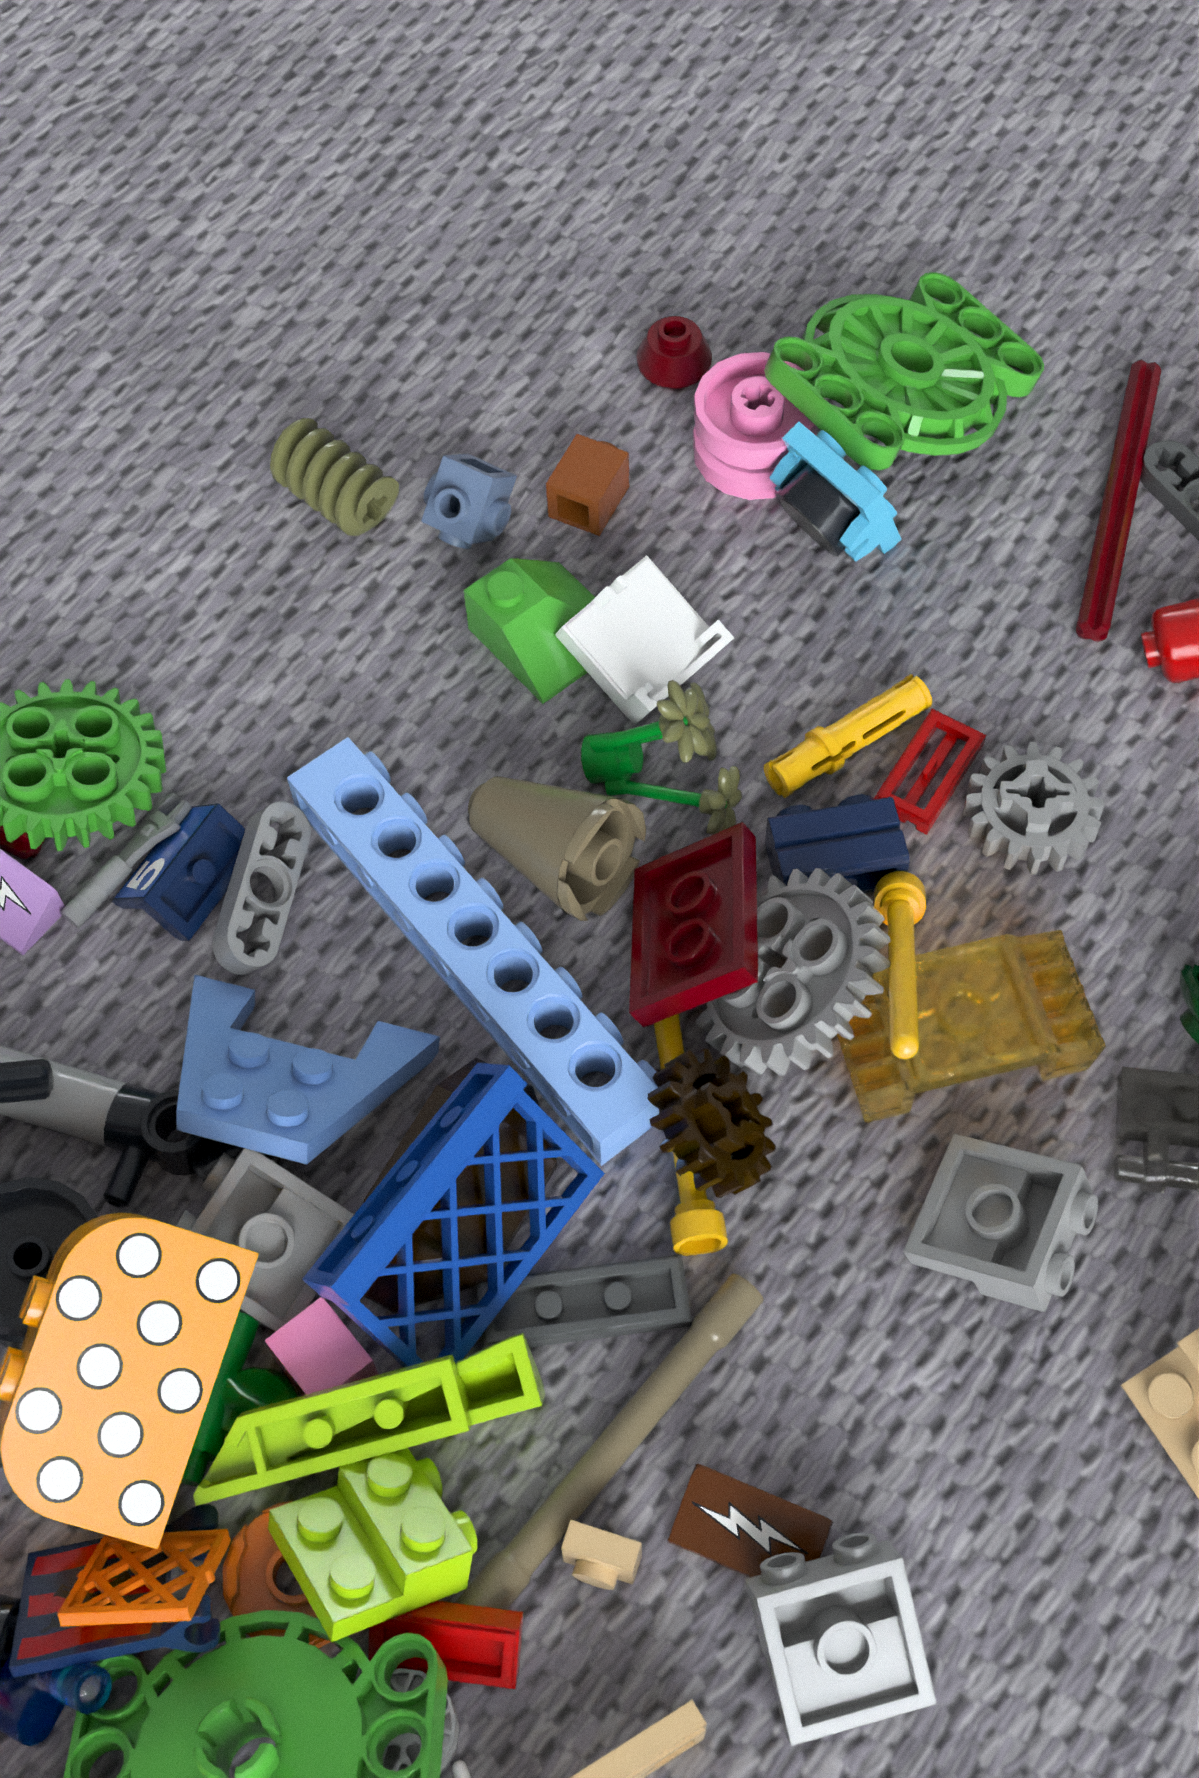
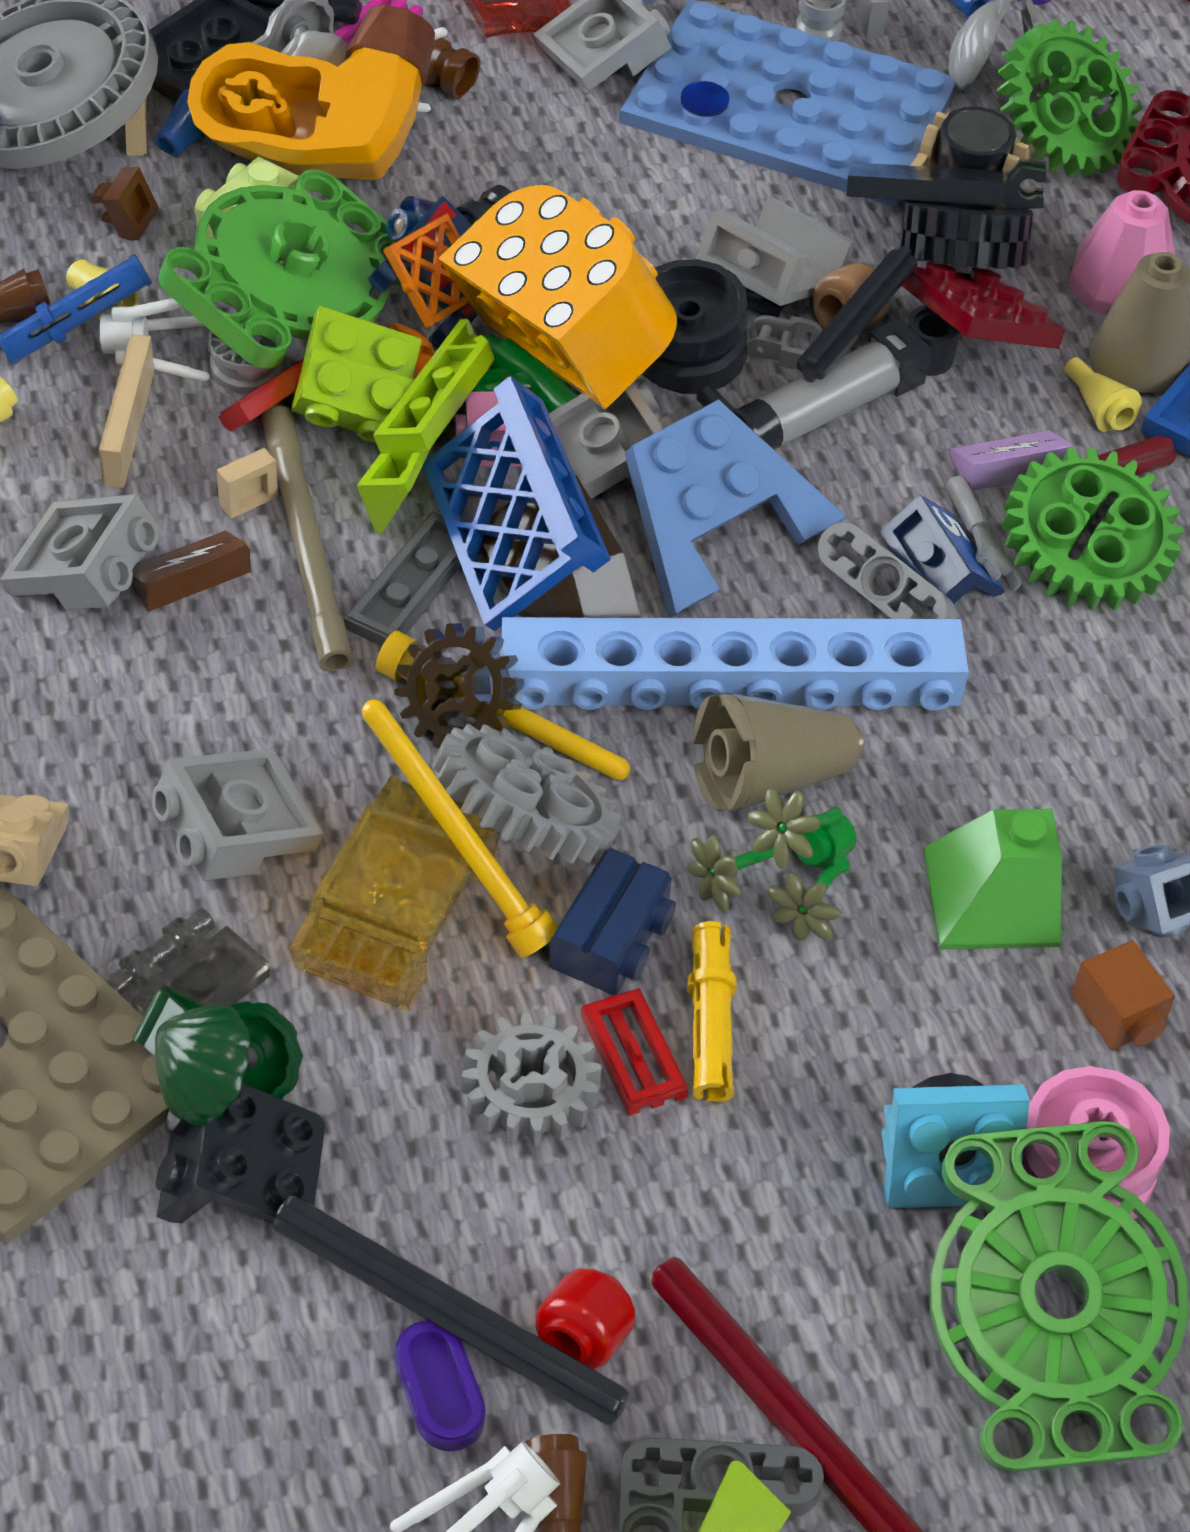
camera: 120 degrees right, 10 degrees down
(640, 639) = (918, 922): white piece -> none
(694, 925) = (617, 767): dark red plate -> none

